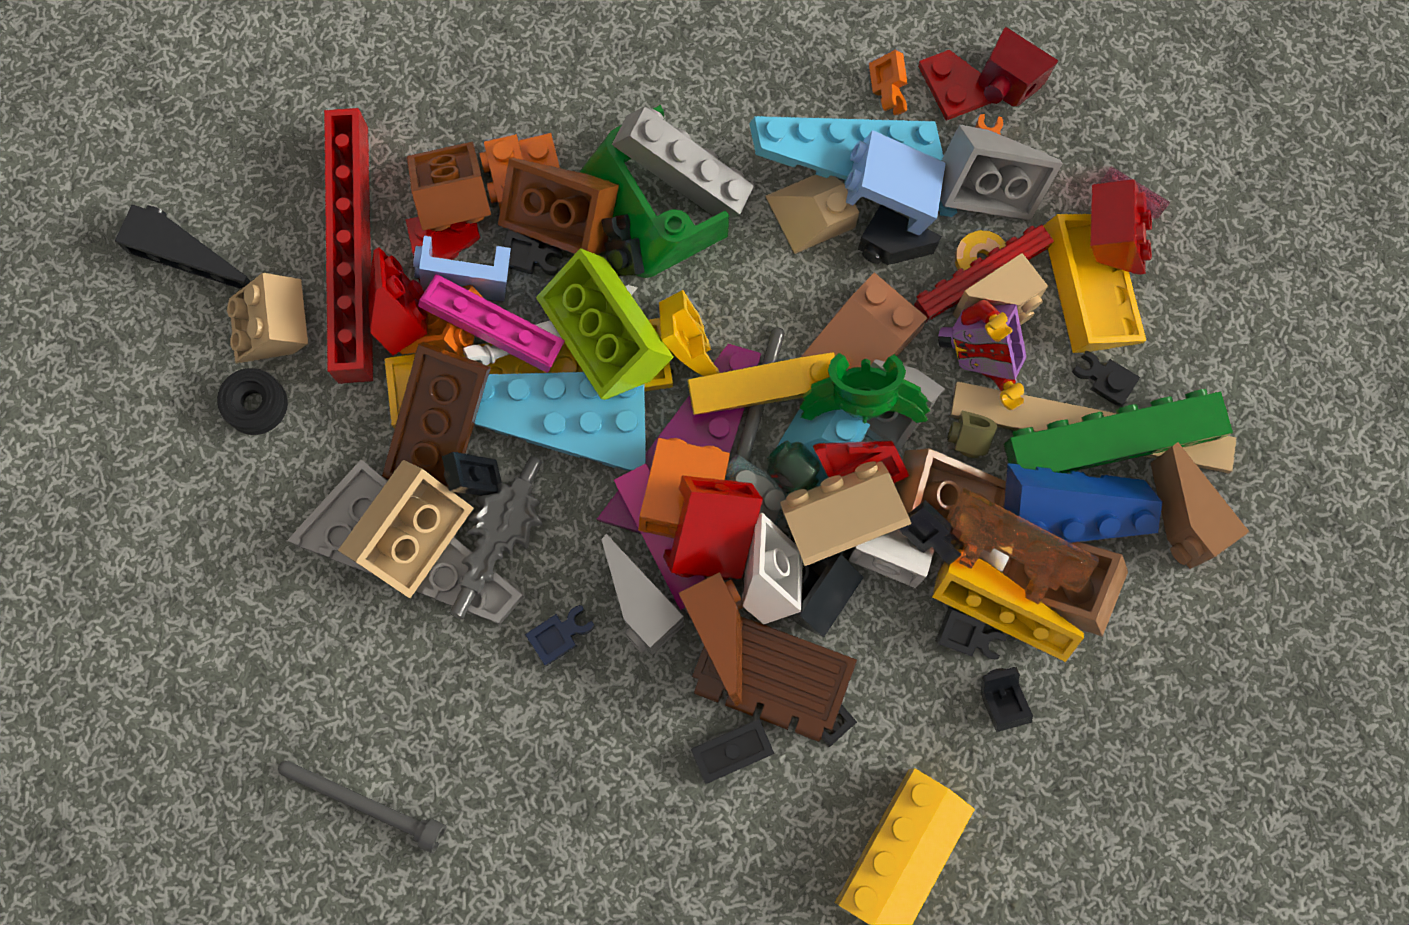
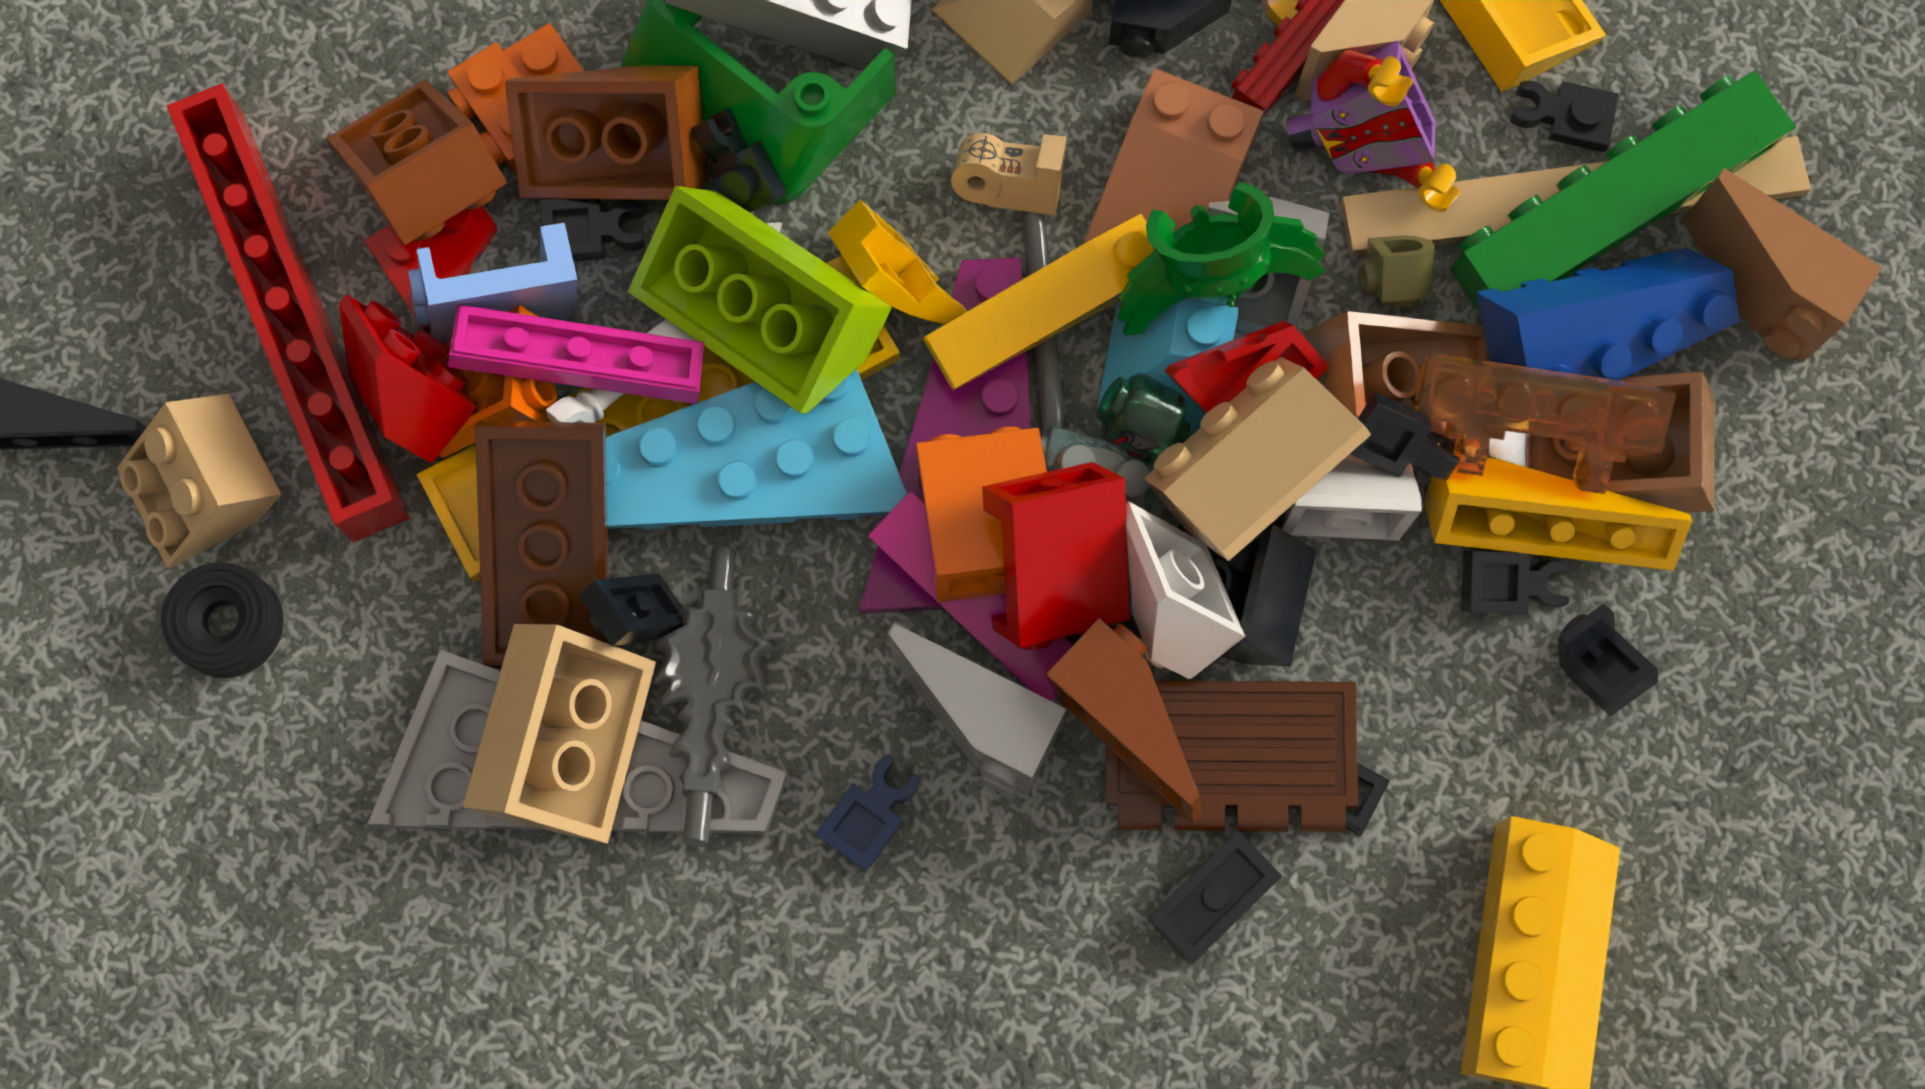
camera: 20 degrees left, 0 degrees up
(773, 304) = (1011, 173): none -> tan leg

